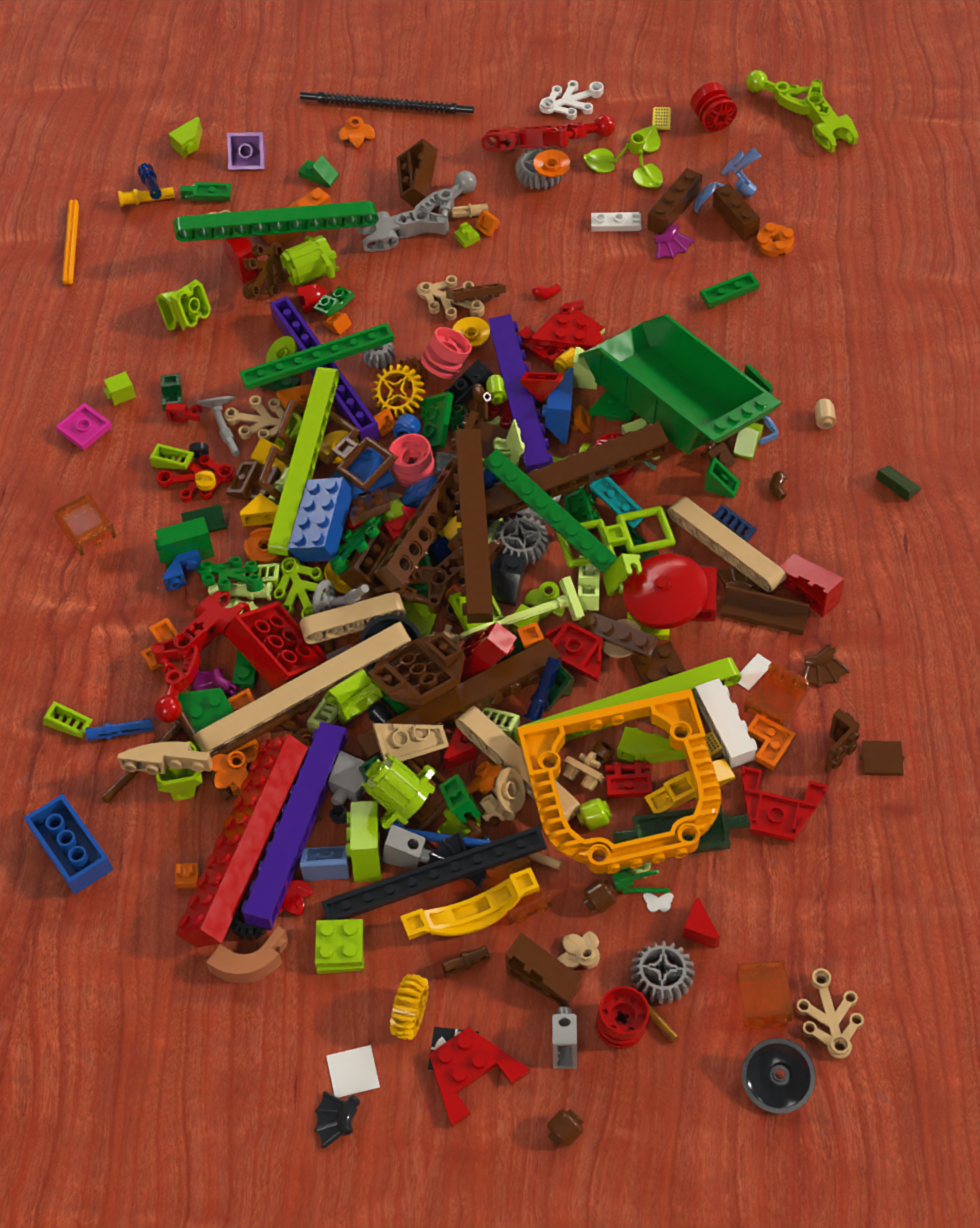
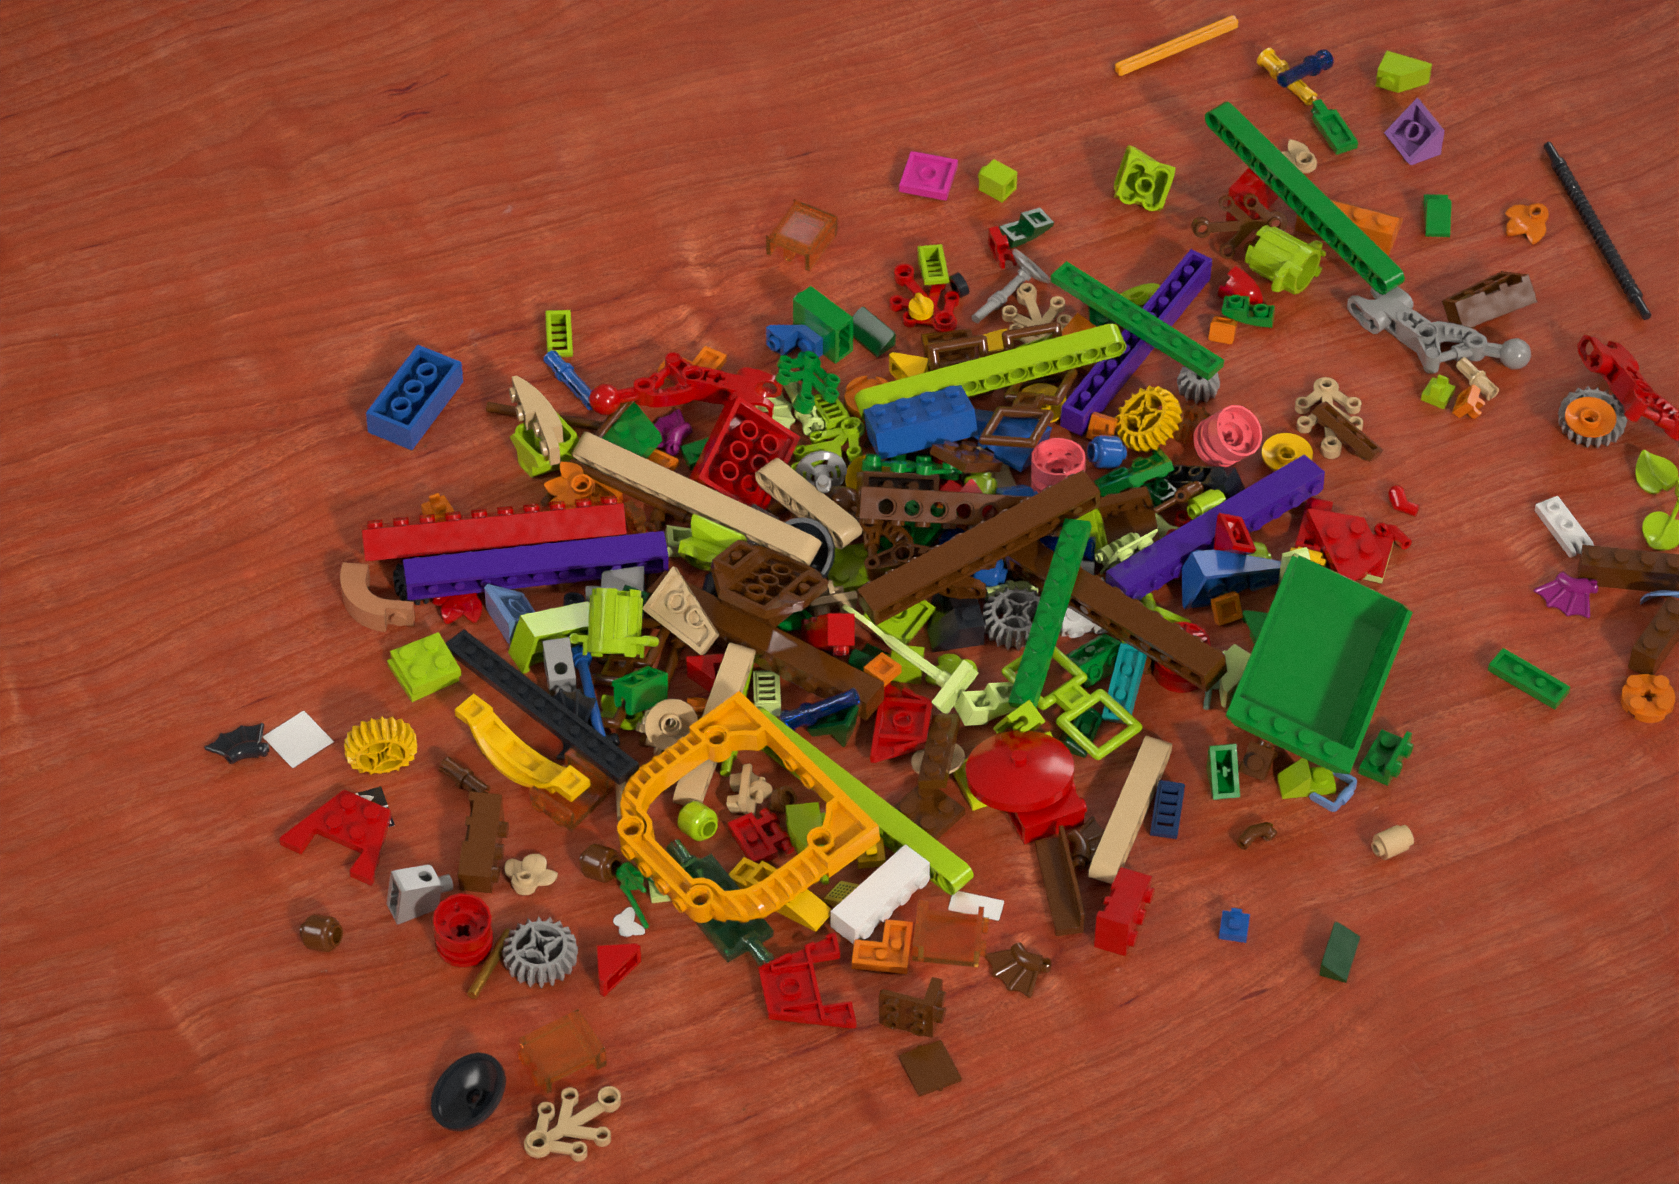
camera: 60 degrees right, 5 degrees down
(847, 529) = (1234, 925): none -> blue tile

